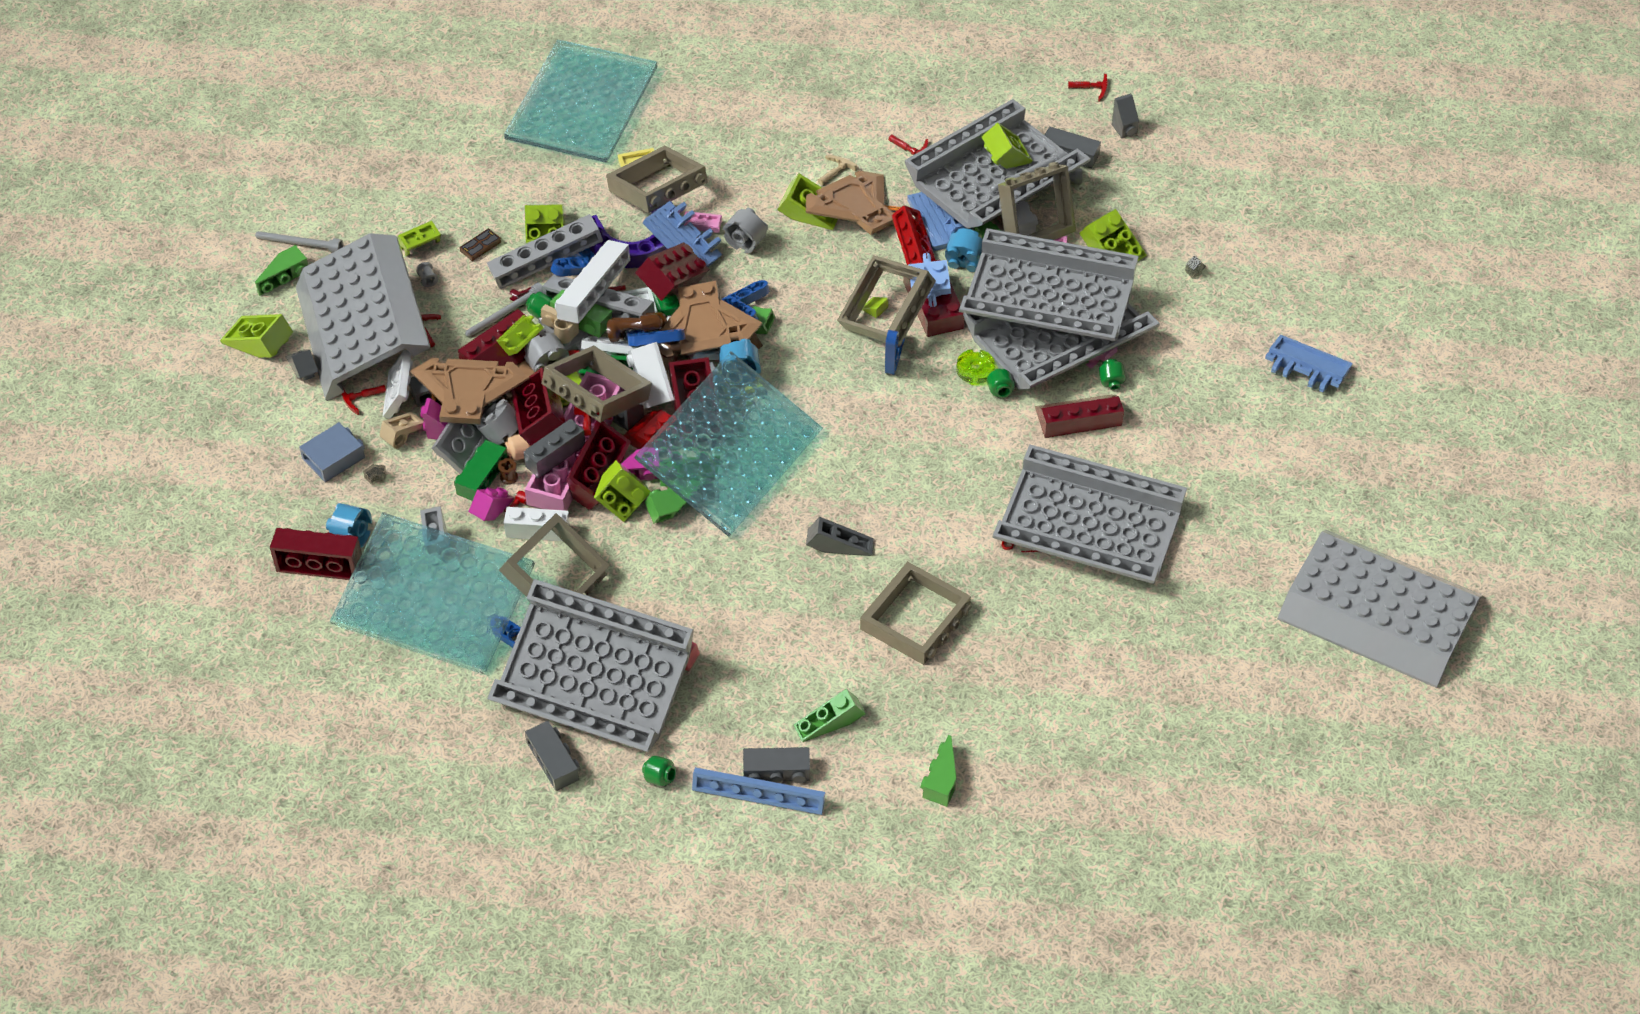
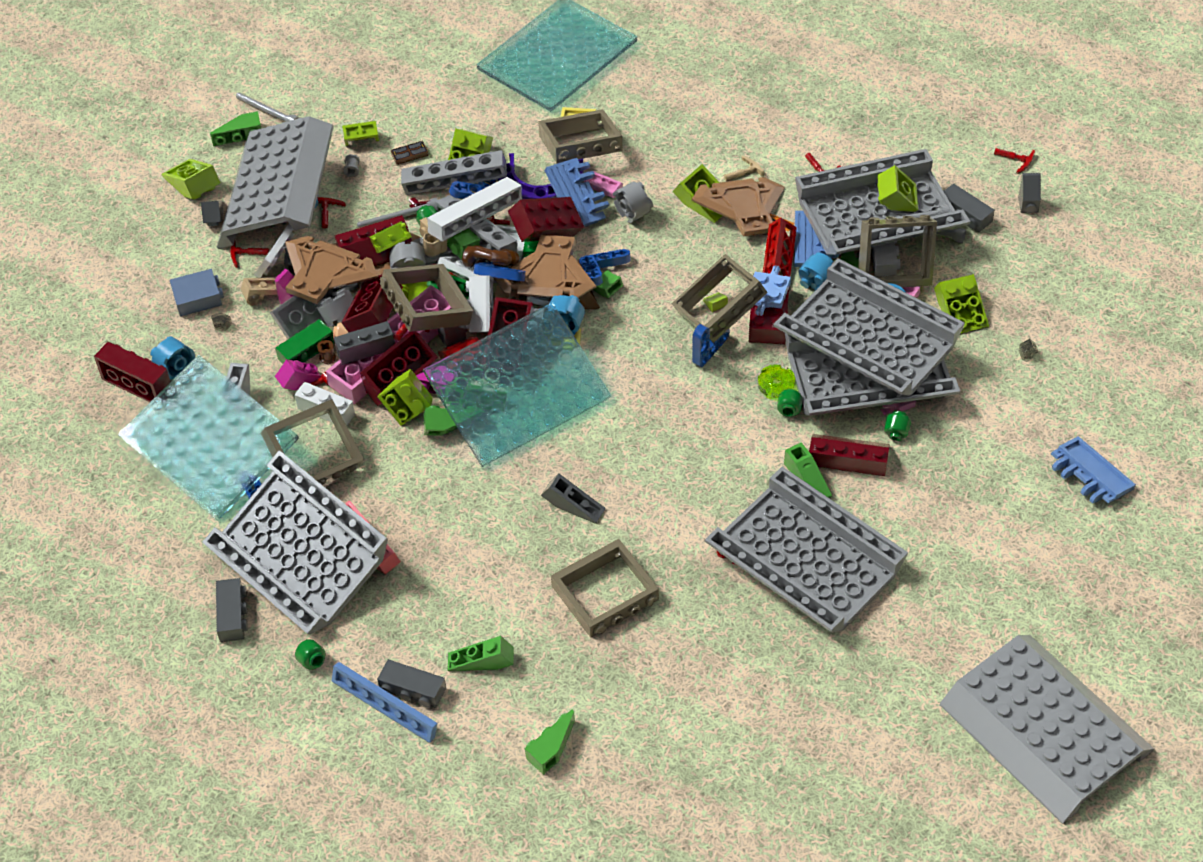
camera: 25 degrees right, 0 degrees up
(1044, 435) = (802, 464): none -> bright green slope

